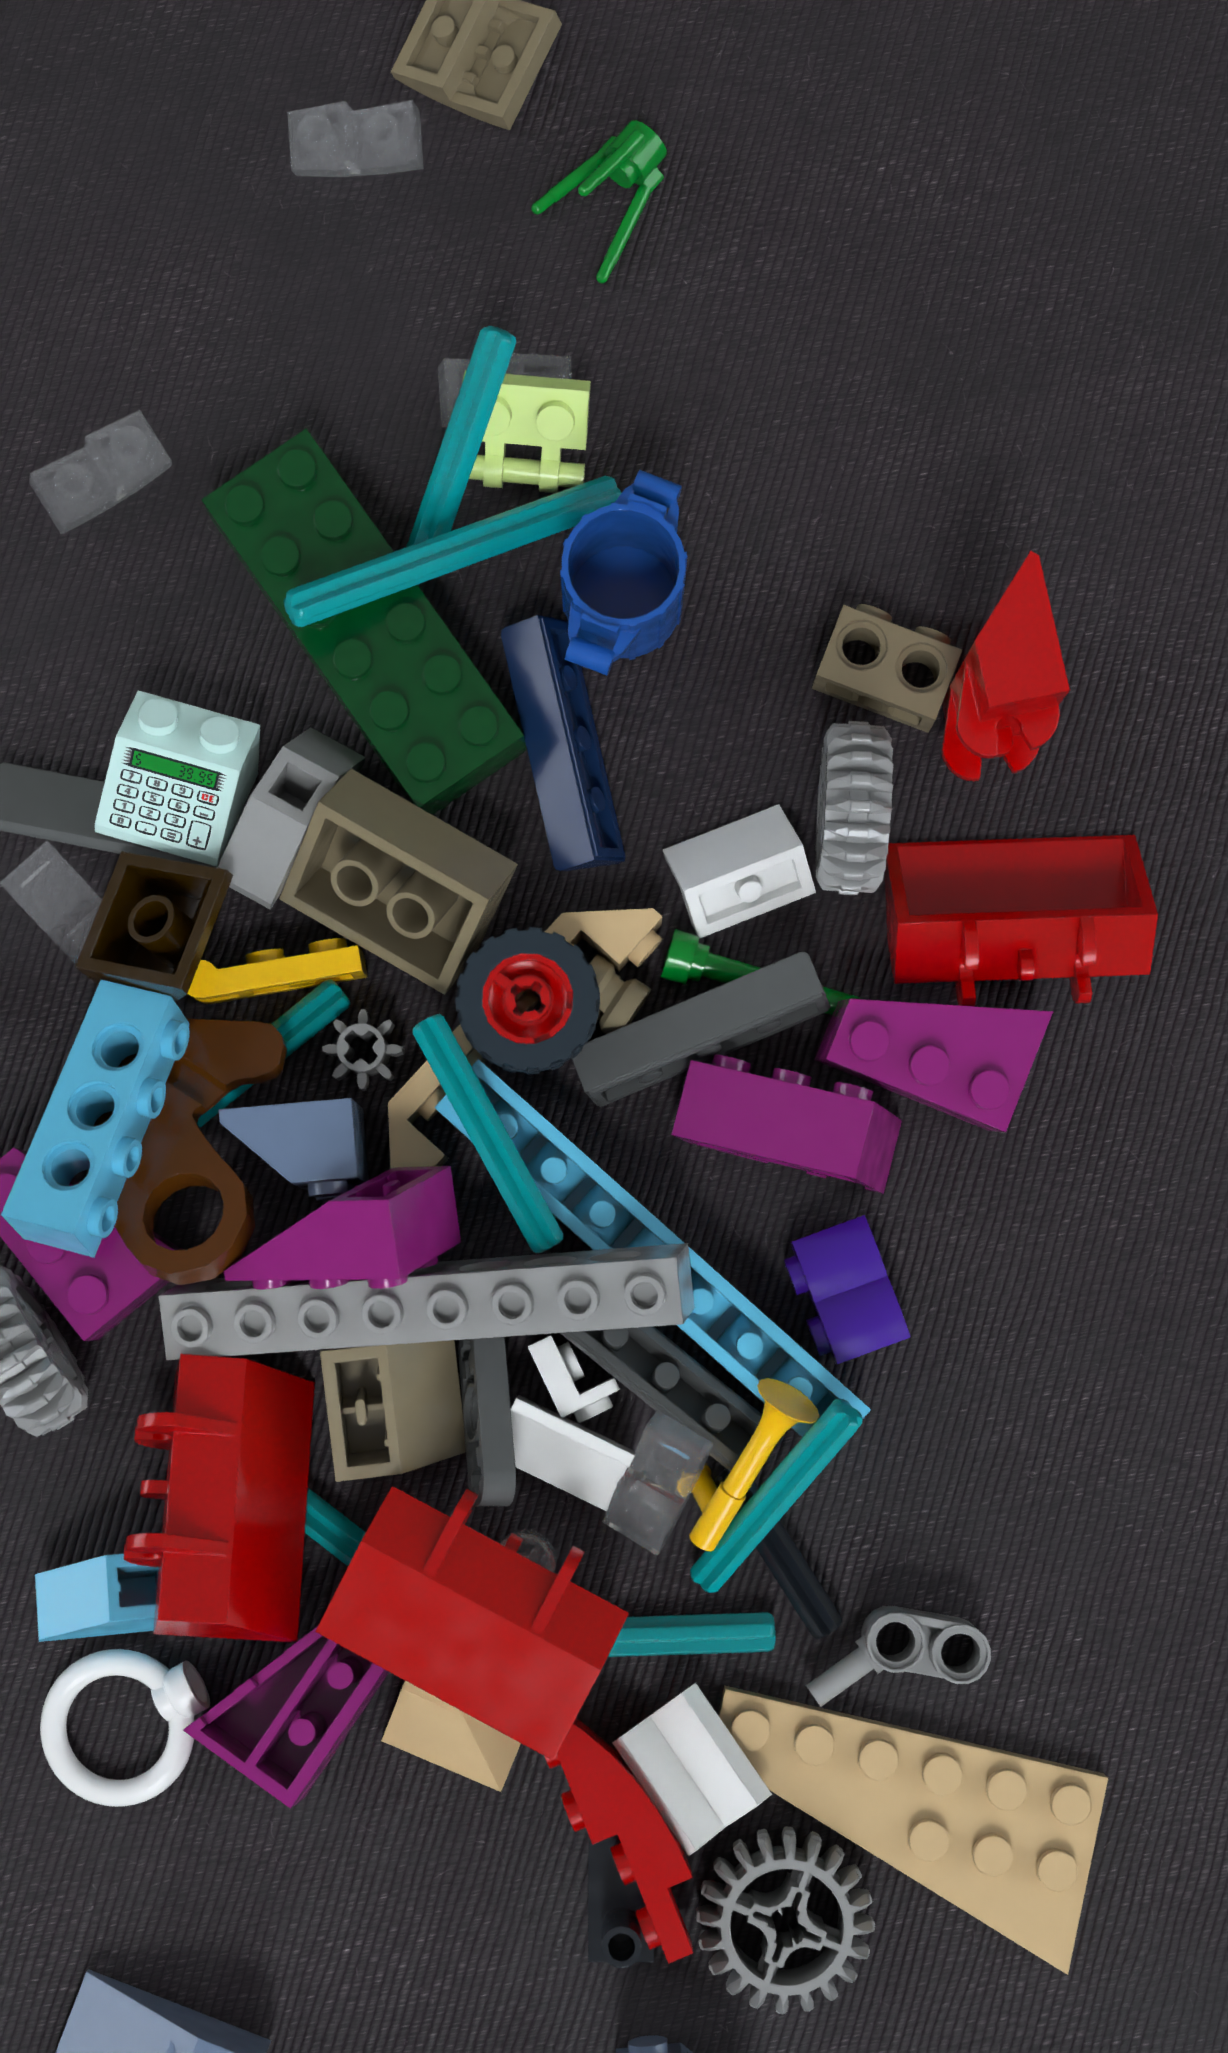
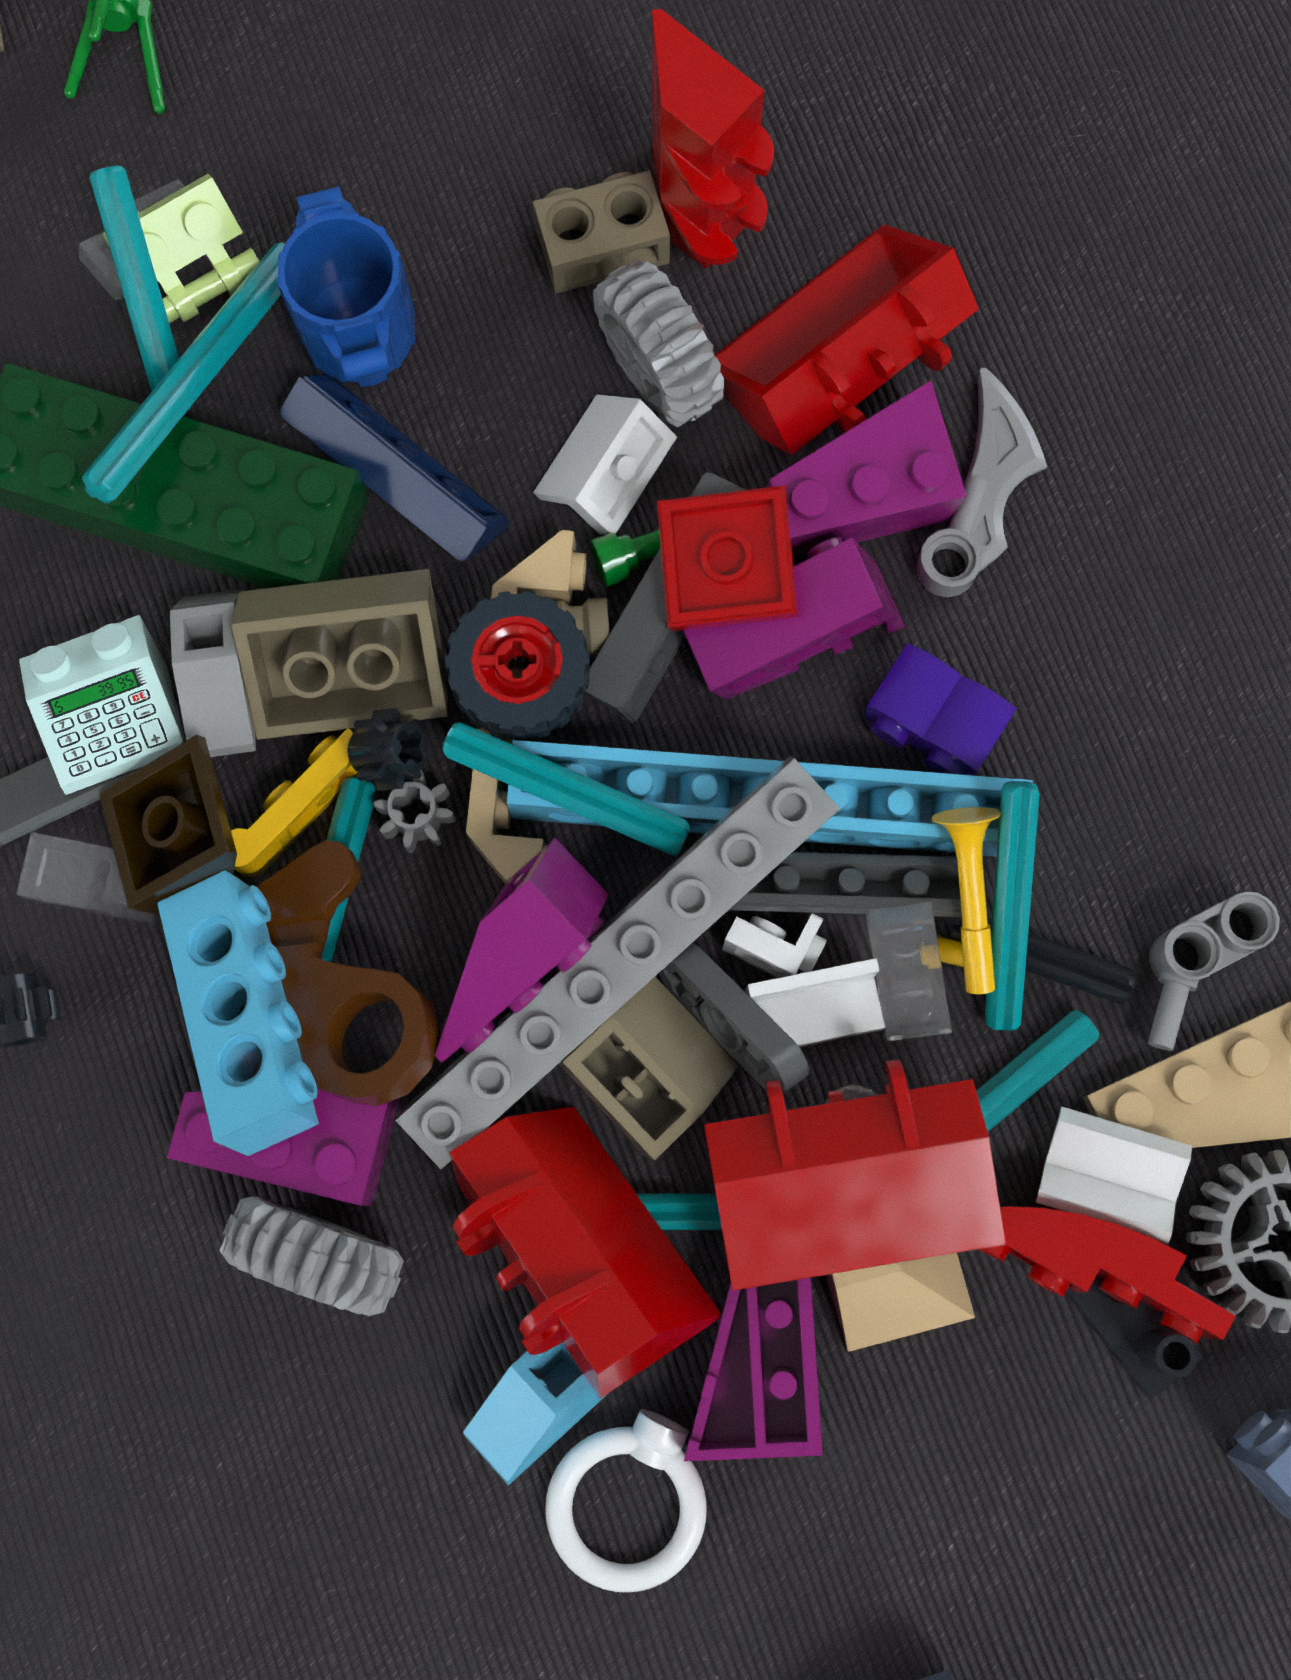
camera: 35 degrees left, 5 degrees down
(307, 1142) = (419, 911): sand blue slope -> none
(373, 990) = (387, 749): none -> black gear
(763, 1040) = (727, 558): none -> red plate
(1073, 1114) = (1001, 460): none -> light grey piece

